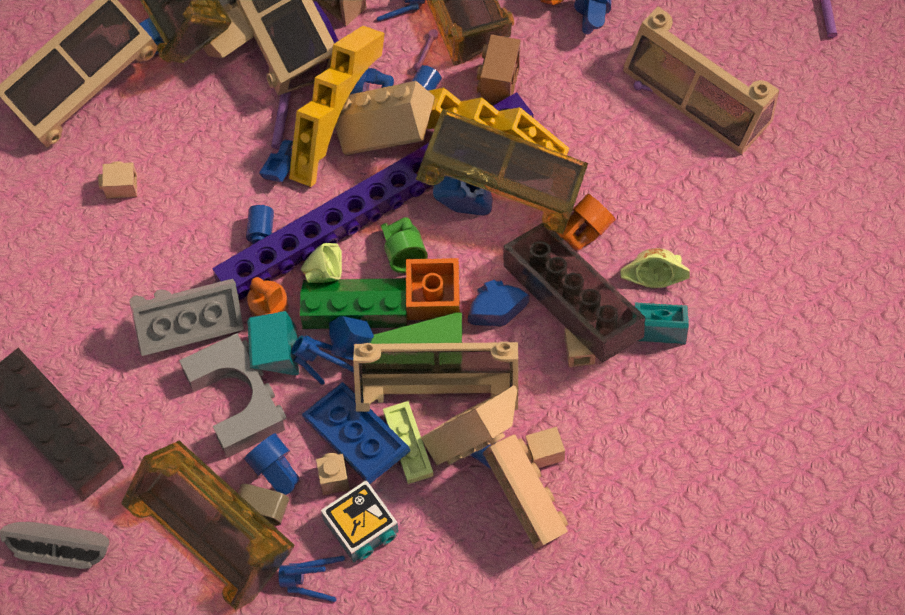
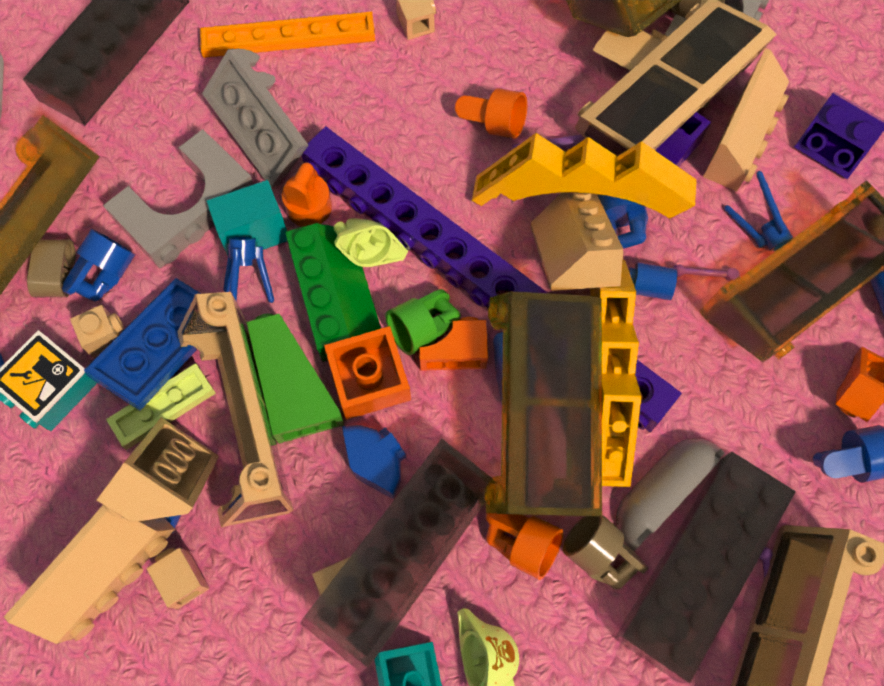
camera: 70 degrees right, 5 degrees up
(96, 287) = (288, 34): none -> light orange tile
(247, 142) = (502, 113): none -> orange piece
(259, 223) = (403, 161): blue brick -> none
(278, 164) = (482, 155): blue plate -> none
(345, 333) = (274, 296): blue piece -> none
(432, 223) = (461, 349): none -> orange arch
(499, 69) = (707, 361): medium nougat brick -> none
(577, 127) = (665, 488): none -> light grey brick
(607, 177) = (595, 545): none -> dark tan piece
(635, 120) = (705, 567): none -> clear smoke brick

